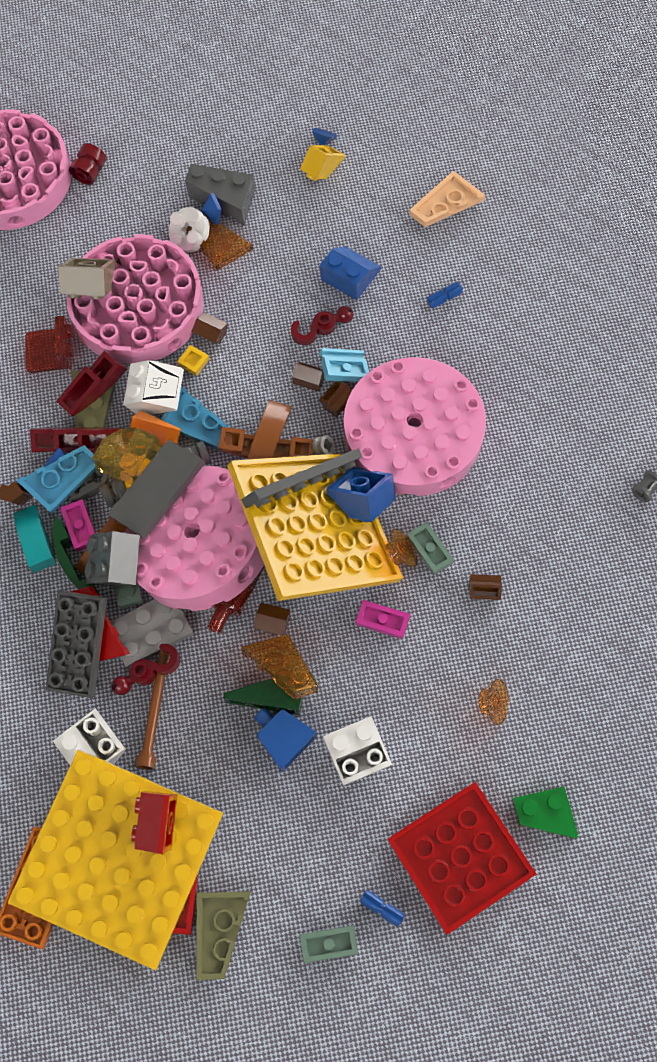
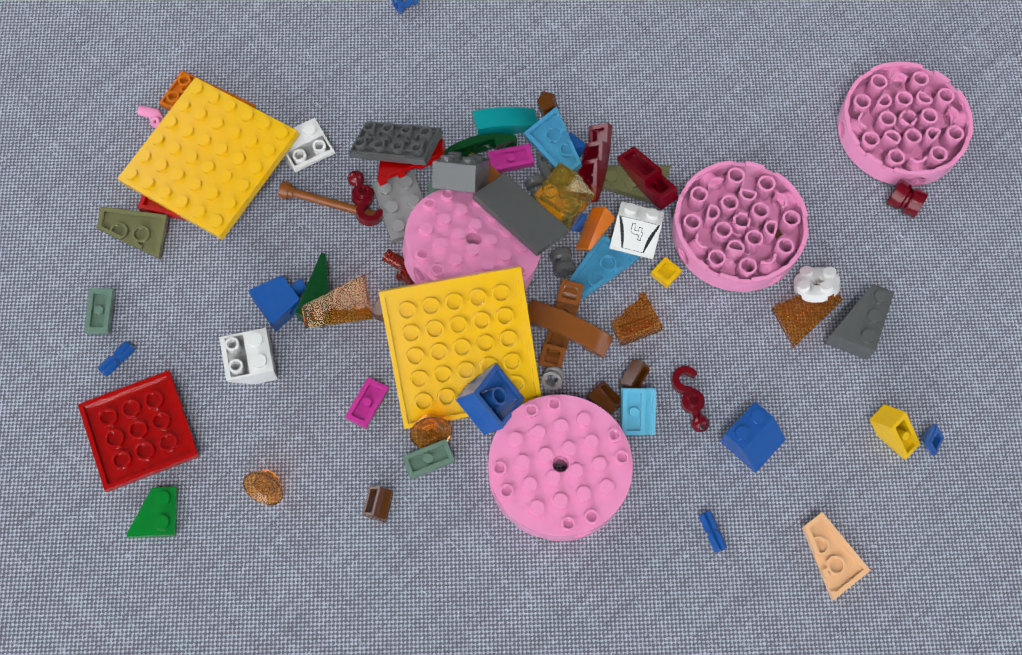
camera: 90 degrees right, 0 degrees up
(50, 348) = (696, 148): clear red bracket -> none
(58, 951) = (154, 115): none -> bright pink arm
(86, 277) = (759, 177): slope -> none
(155, 822) = (218, 179): red slope -> none
(210, 327) = (699, 291): reddish brown piece -> none
(212, 209) = (837, 305): blue slope -> none
(249, 380) = (637, 322): none -> clear orange wing
(298, 481) = (496, 328): dark grey plate -> none

